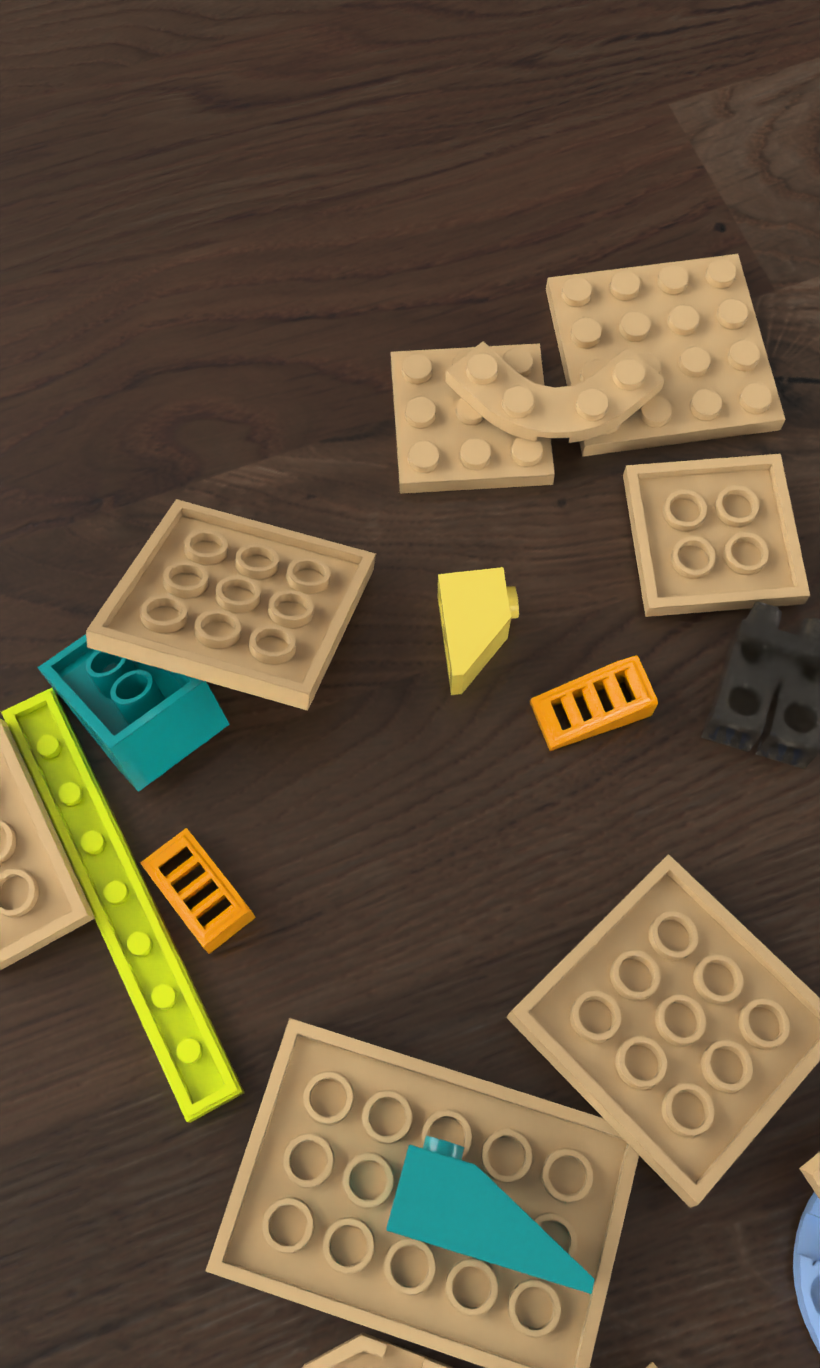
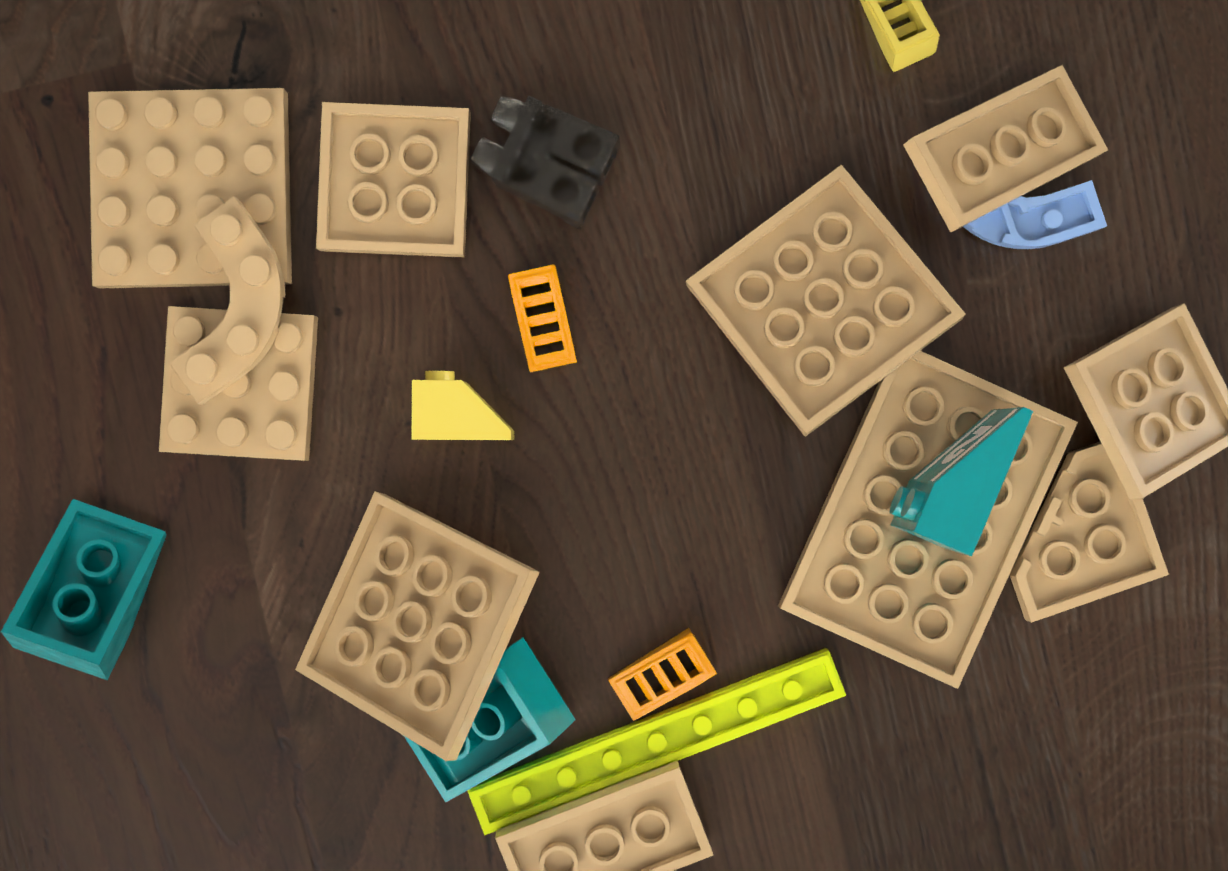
camera: 80 degrees left, 20 degrees up
(242, 304) = (86, 590): none -> teal slope

